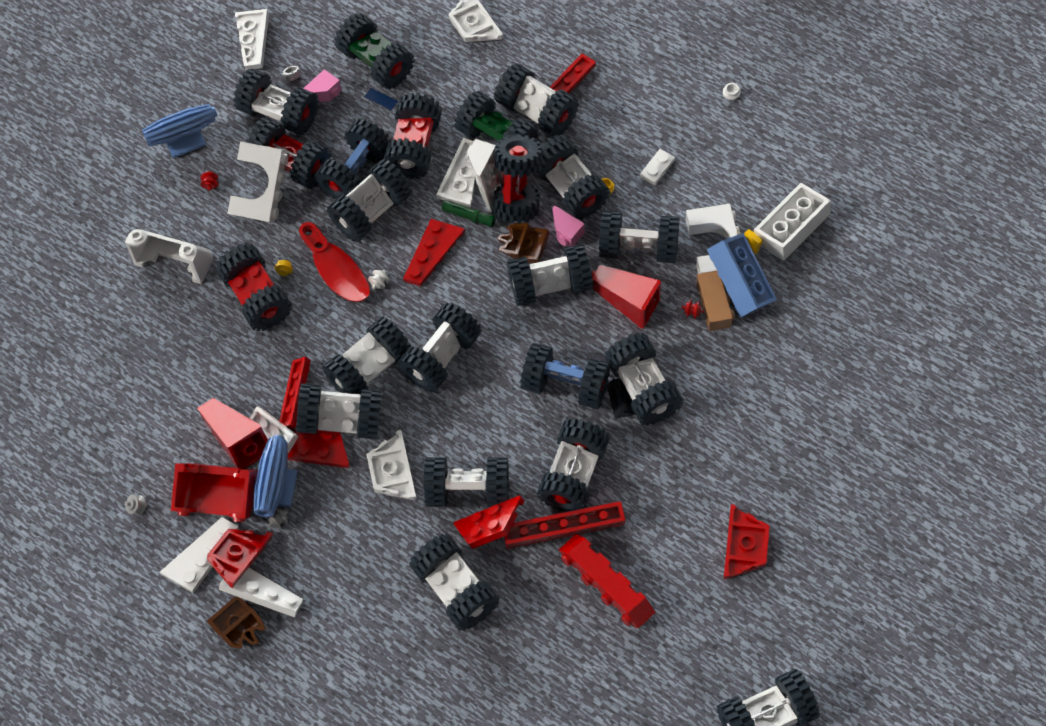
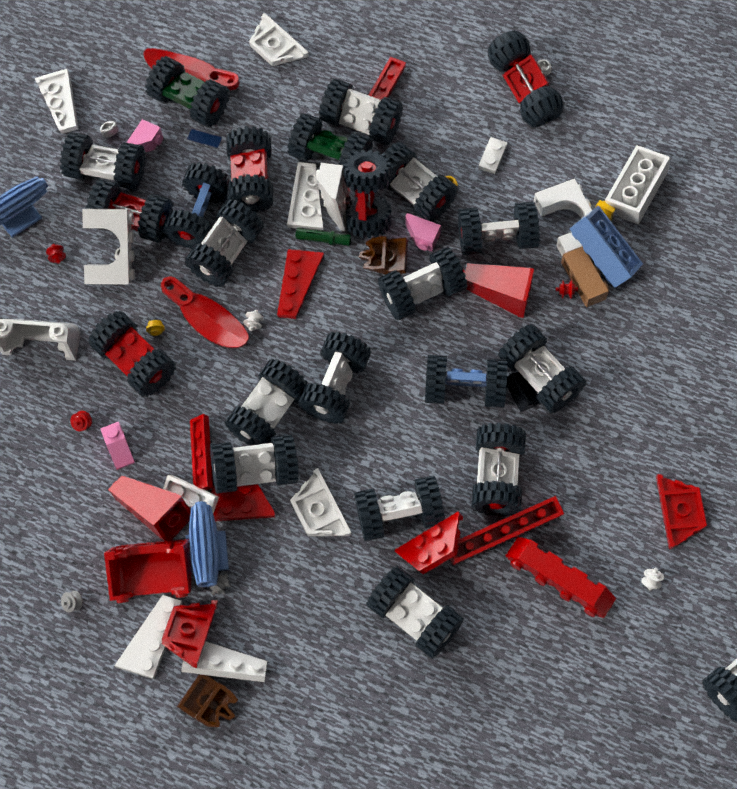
camera: 15 degrees left, 5 degrees up
(190, 340) = (81, 420): none -> red wheel
(217, 370) = (117, 445): none -> bright pink slope
(390, 30) = (195, 67): none -> red plant
(697, 602) = (652, 579): none -> white wheel
(701, 73) = (525, 78): none -> black plate

